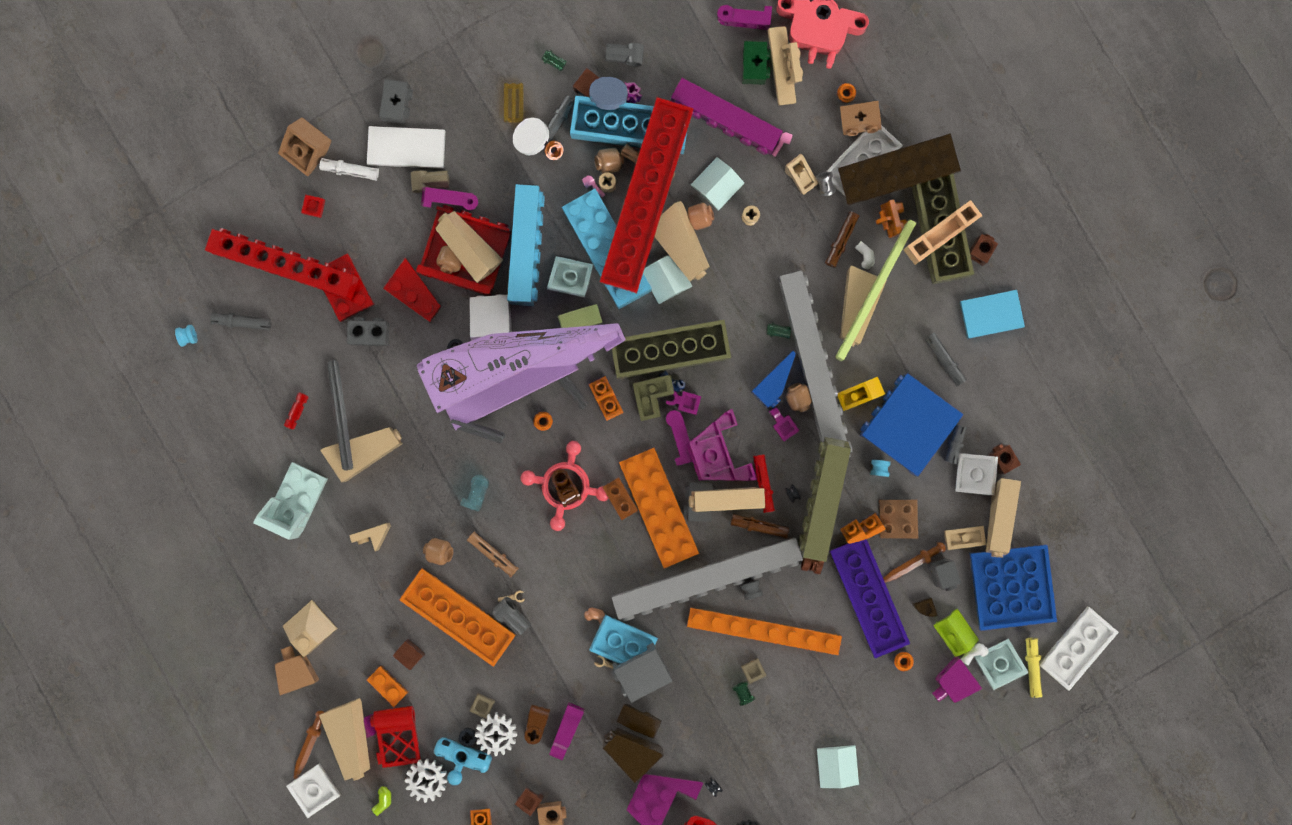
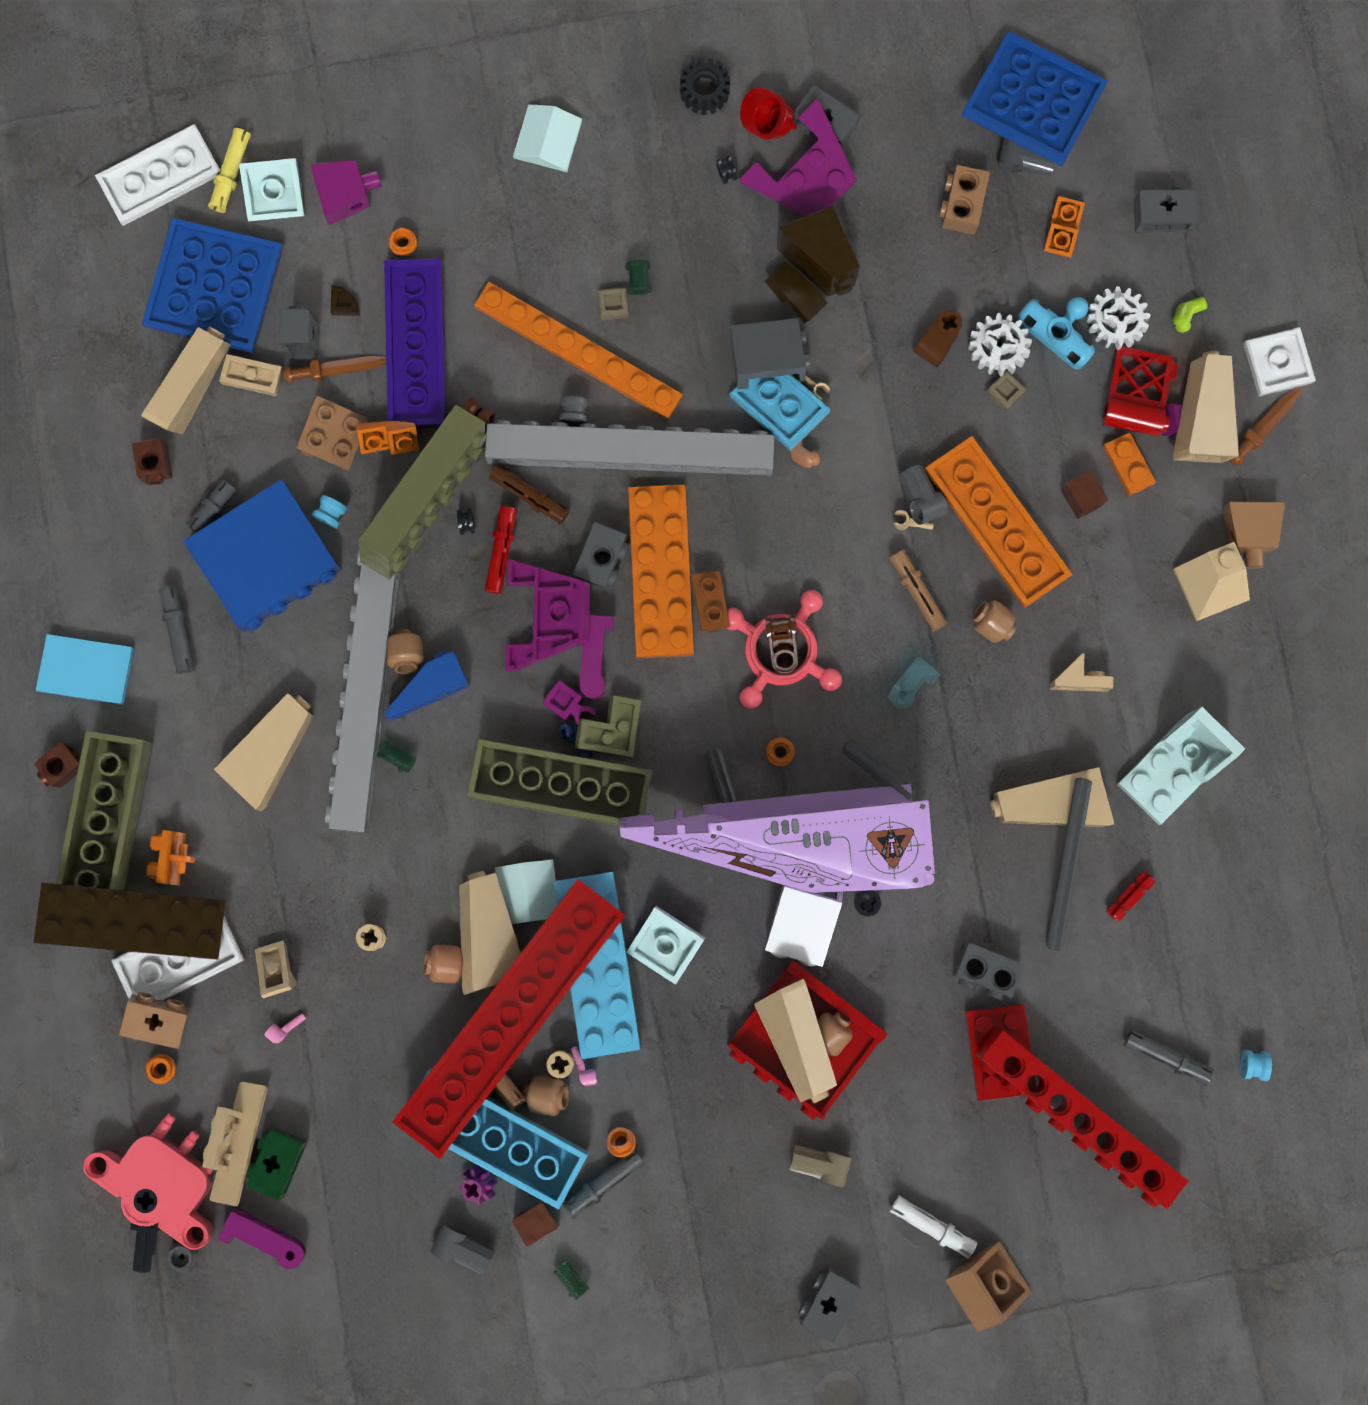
camera: 160 degrees left, 5 degrees down
(313, 206) = (1005, 1190): red plate -> none
(406, 147) = (837, 1229): white tile -> none
(412, 291) = (903, 1009): red wing -> none
(463, 742) = (1049, 351): black bush -> none
(465, 200) = (801, 1127): magenta leg -> none
(513, 86) = (646, 1263): clear yellow tile -> none
(525, 244) = (714, 1013): medium azure brick -> none
(528, 801) = (986, 238): copper panel -> none
(530, 136) = (647, 1175): white tile -> none
(566, 730) = (900, 315): magenta leg -> none
(582, 317) = (674, 878): yellowish green slope -> none
(606, 398) = (678, 751): orange slope -> none
(608, 93) = (508, 1194): sand blue tile -> none
(717, 183) = (400, 1004): light aqua slope -> none
(727, 117) = (349, 1097): magenta brick -> none
(727, 499) = (558, 541): tan slope -> none
(785, 426) = (441, 618): magenta plate -> none
(825, 189) = (244, 943): flat silver bush -> none
(838, 246) = (263, 845): reddish brown pin -> none
(860, 393) = (315, 624): yellow slope -> none
(868, 255) = (225, 818): white arm -> none
(875, 290) = (234, 758): yellowish green tile -> none
(942, 232) = (105, 804): light nougat arch -> none
(956, 633) = (315, 252): lime panel -> none
(976, 474) = (199, 453): white tile -> none
(978, 649) = (302, 221): white arm -> none

